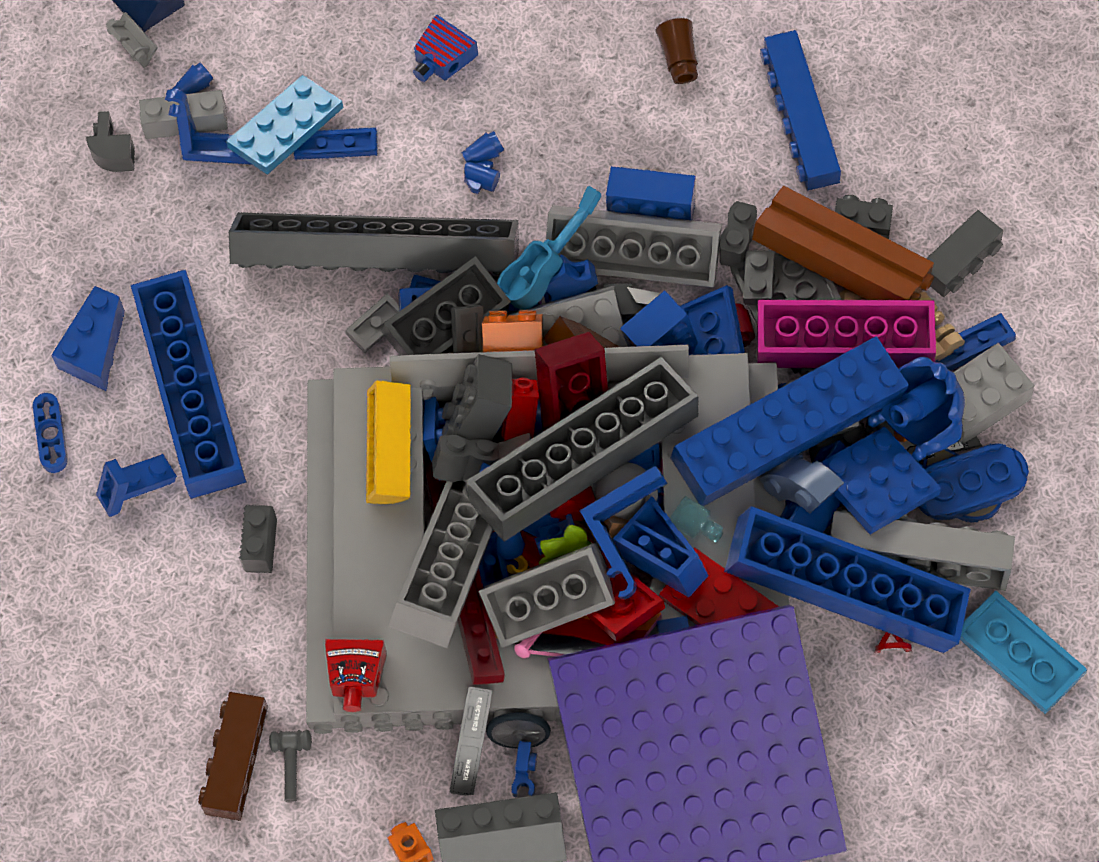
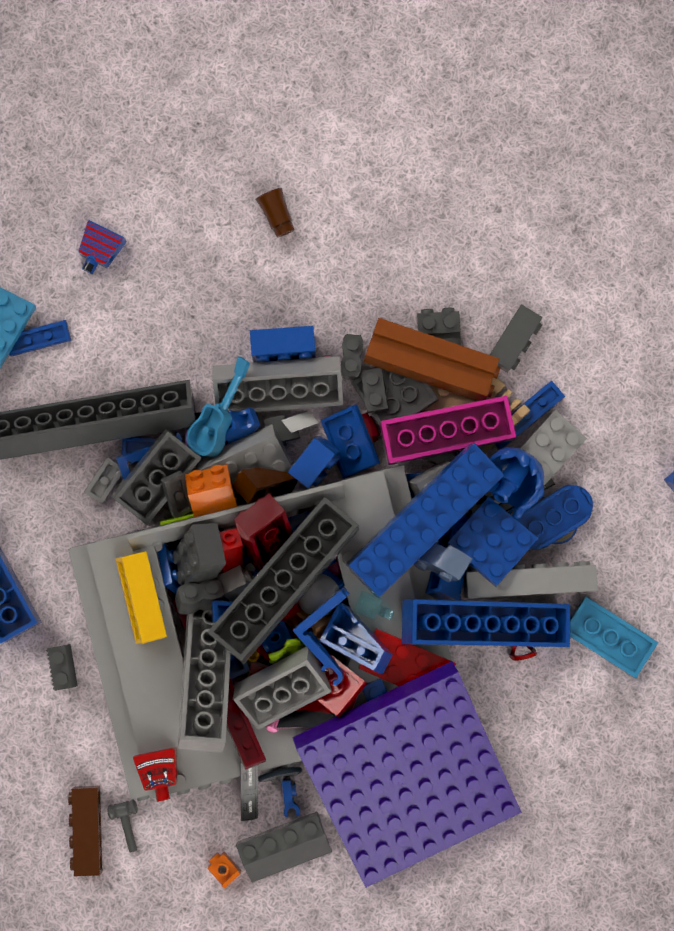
camera: 20 degrees left, 20 degrees up
(481, 176) = (152, 345): blue piece -> none
(483, 148) = (149, 322): blue cone -> none
(801, 110) = (376, 243): blue brick -> none

